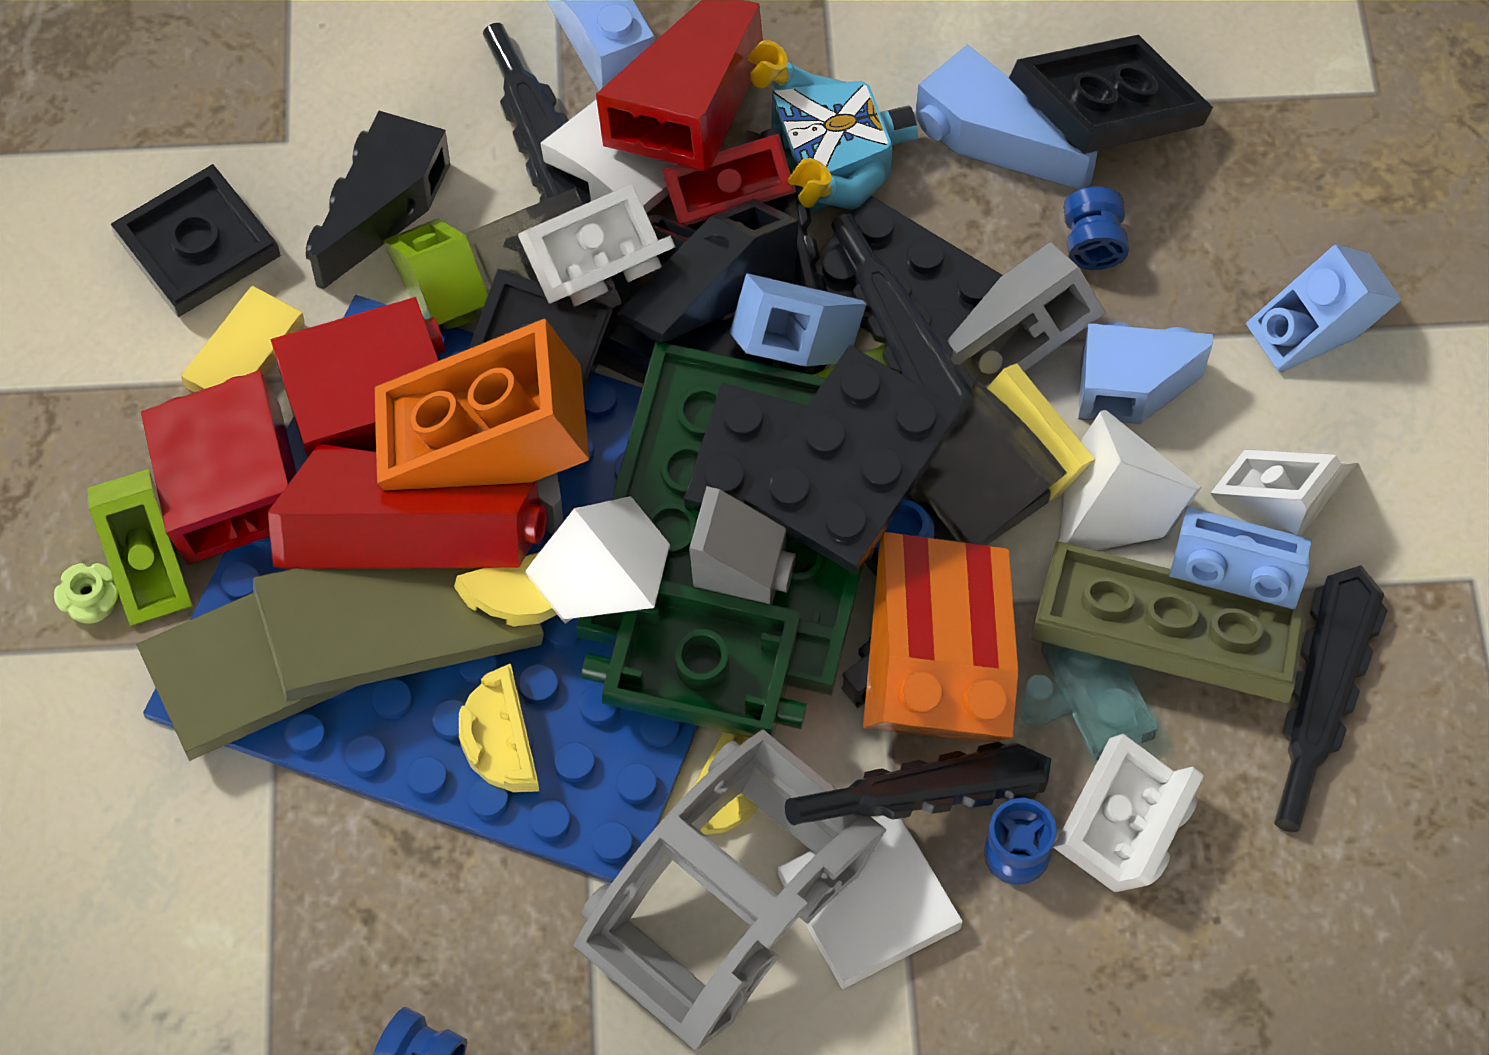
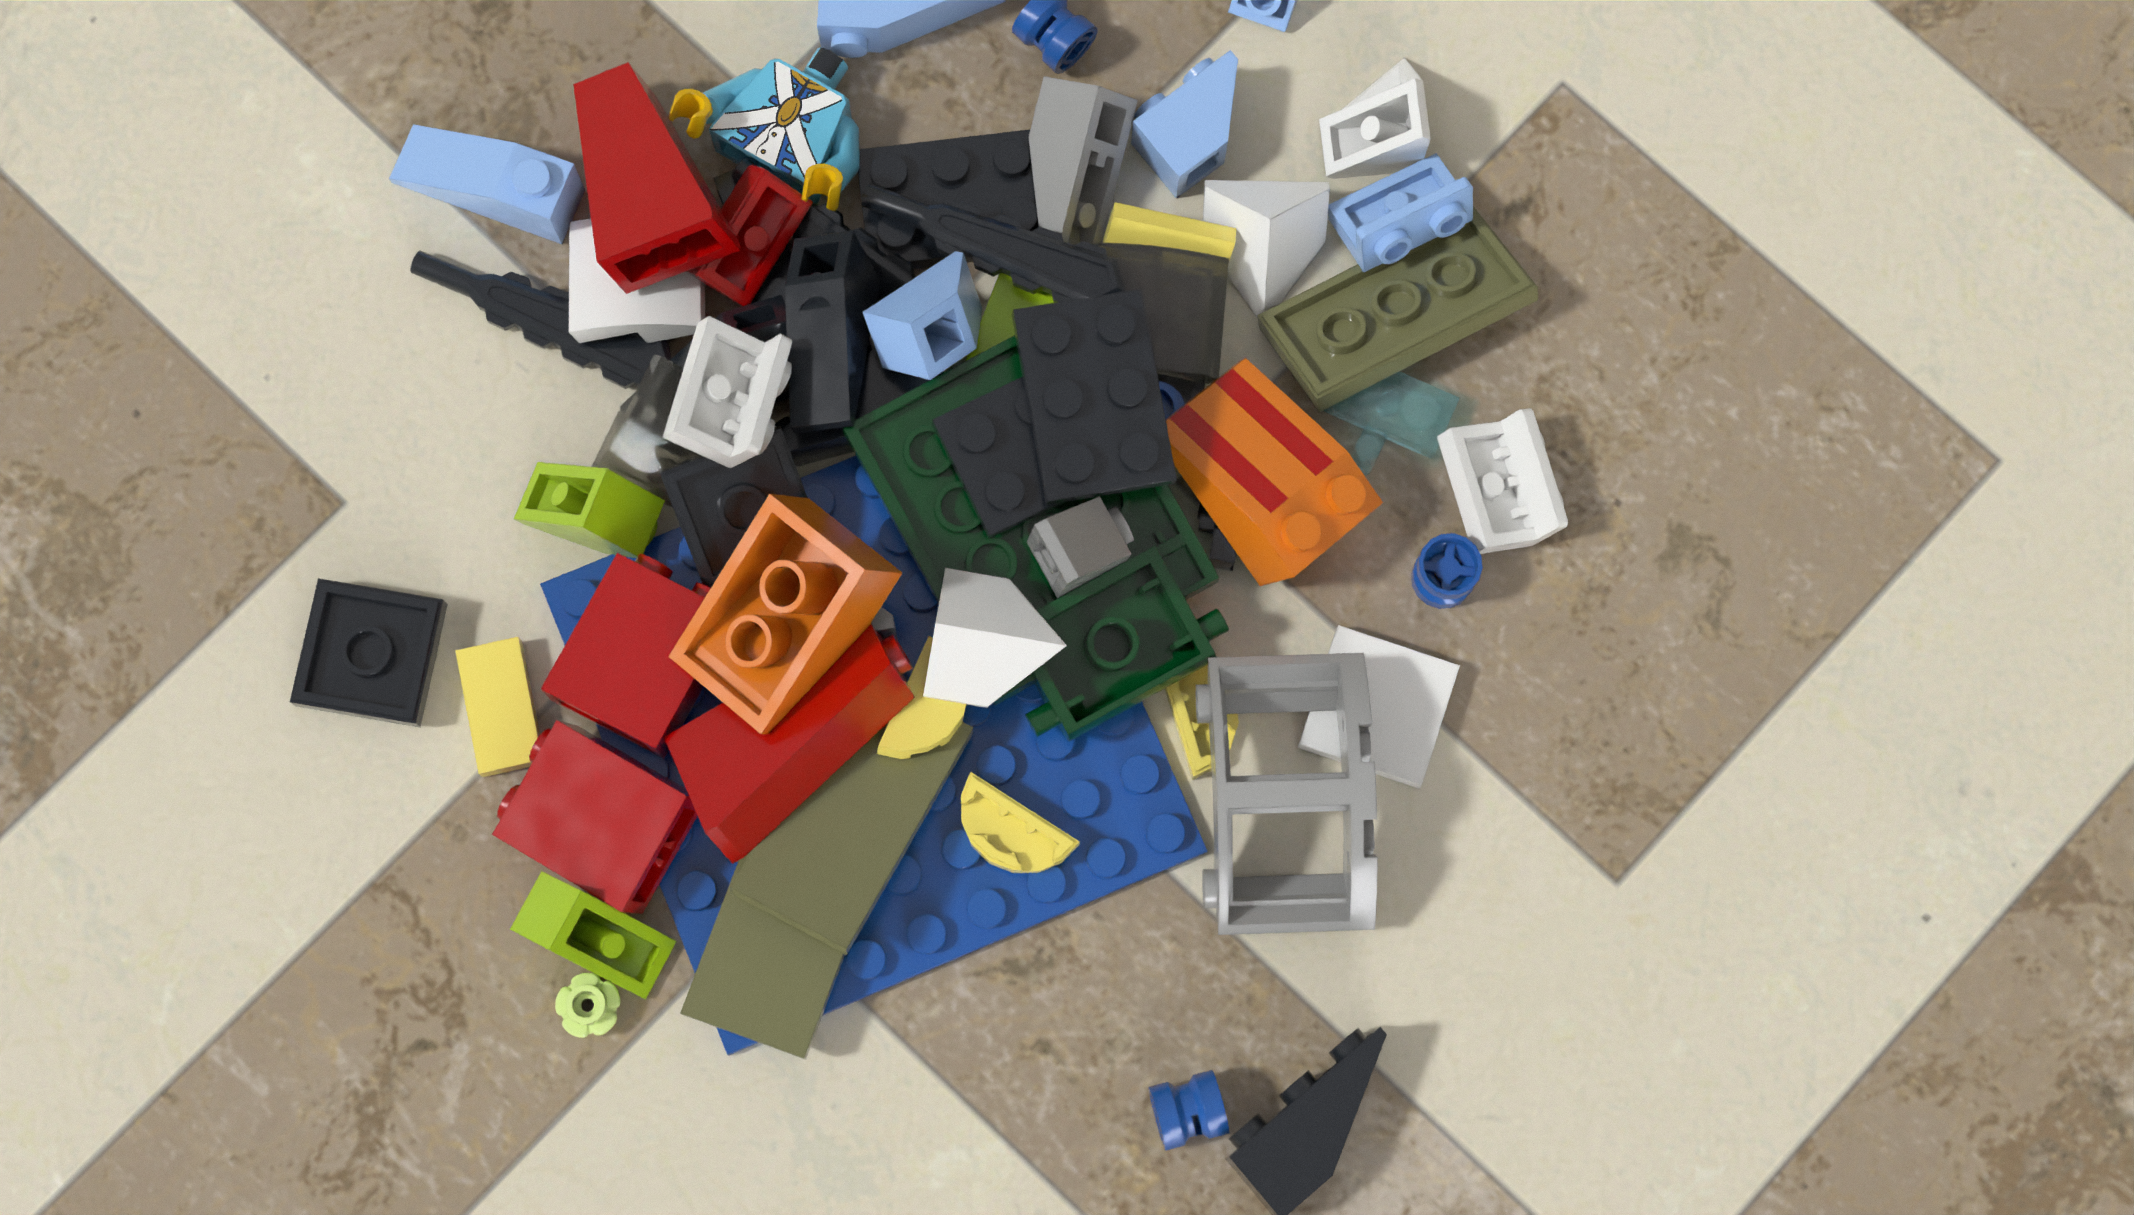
camera: 45 degrees left, 15 degrees up
(385, 191) = (480, 477): black slope -> none
(935, 787) = (1359, 588): black sword -> none
(1336, 652) = (1507, 192): black sword -> none

